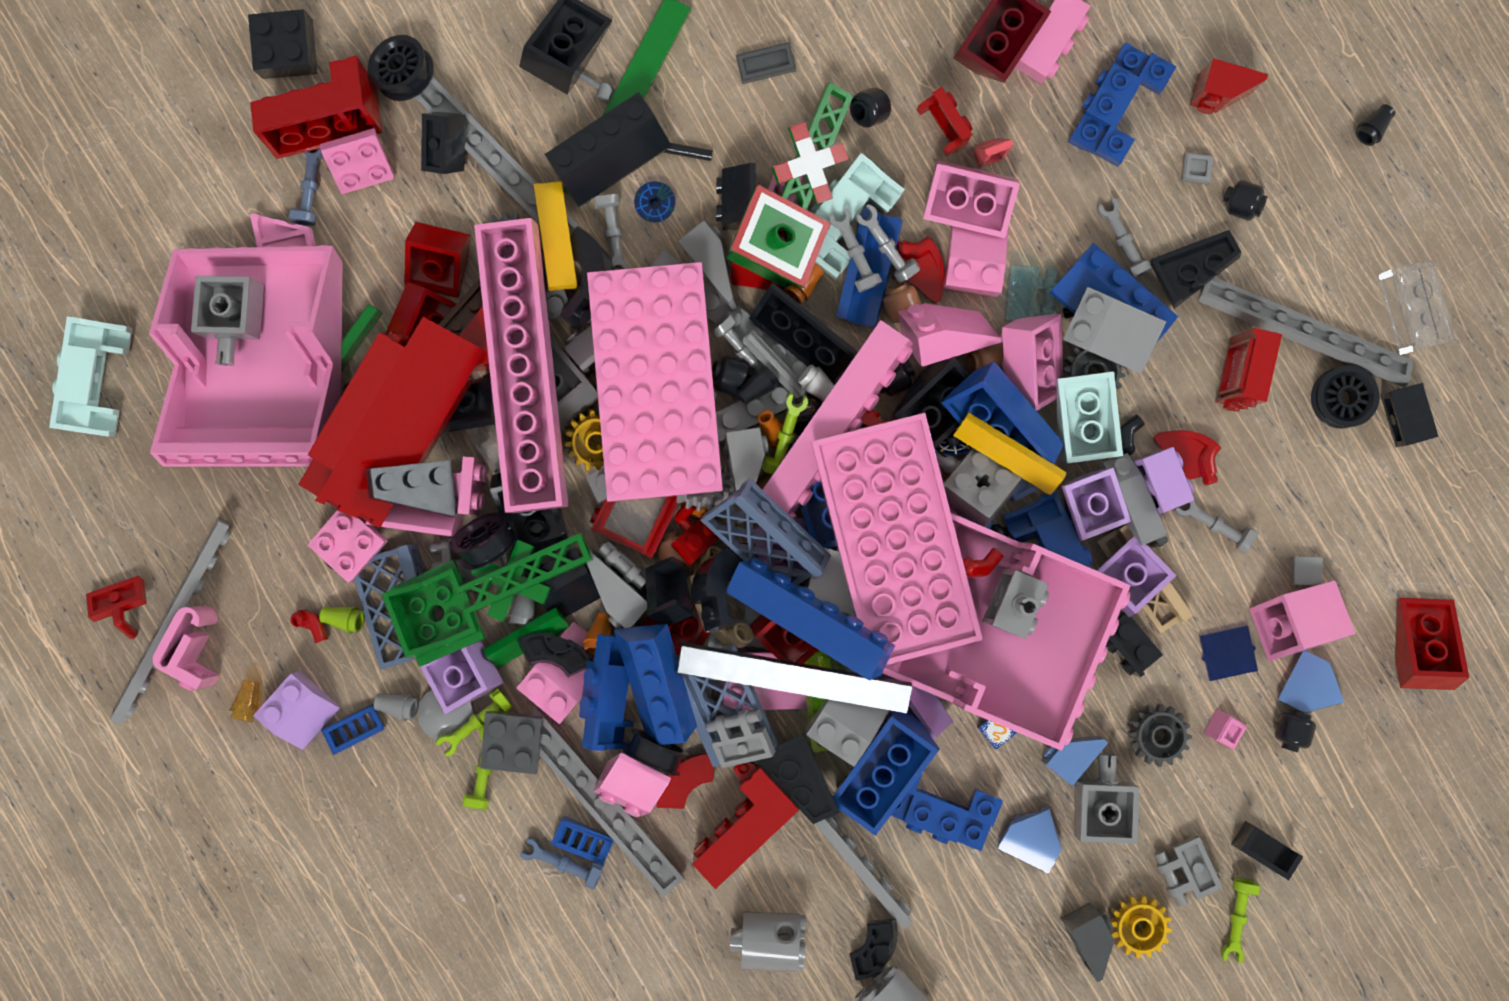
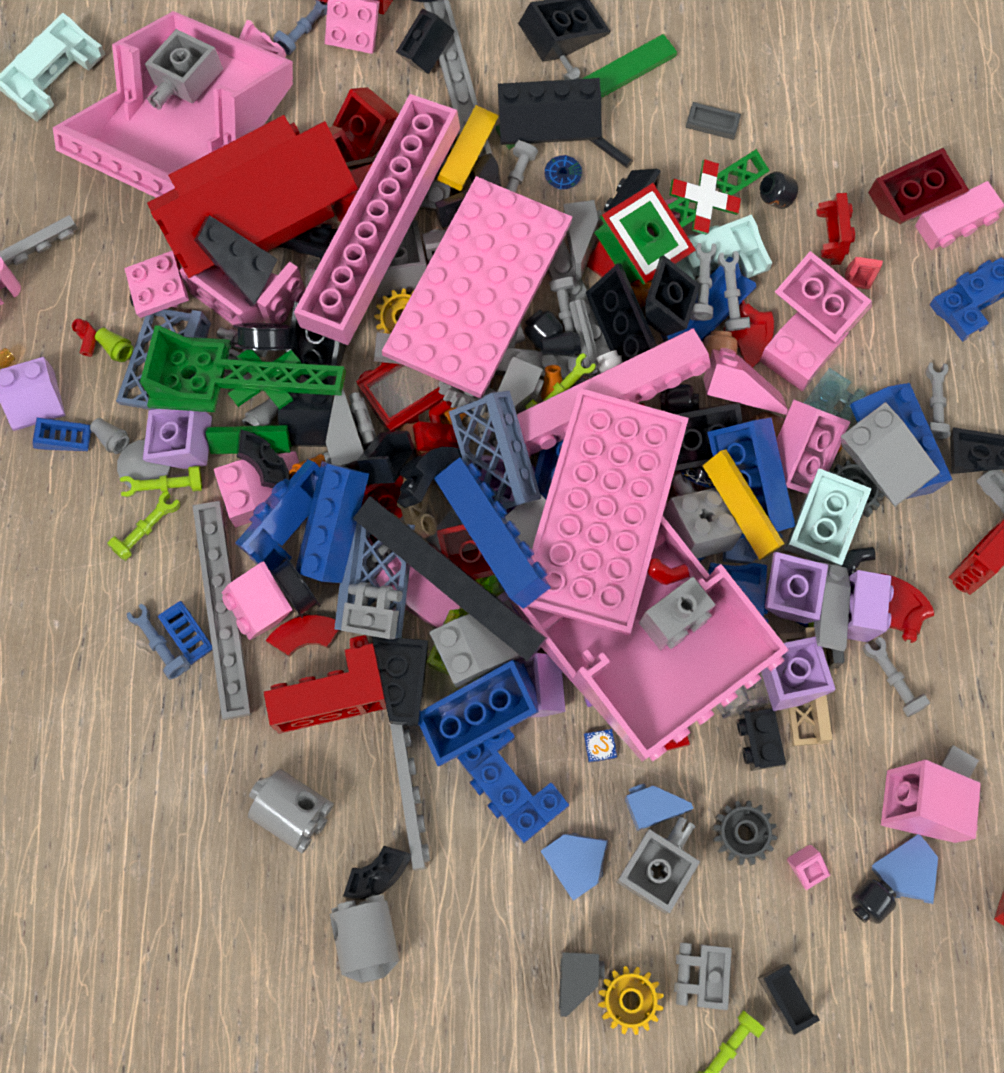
camera: 30 degrees right, 15 degrees down
(511, 742) = (181, 513): dark grey plate -> none
(838, 290) = (670, 298): none -> black slope
(1228, 653) = (847, 799): clear blue piece -> none

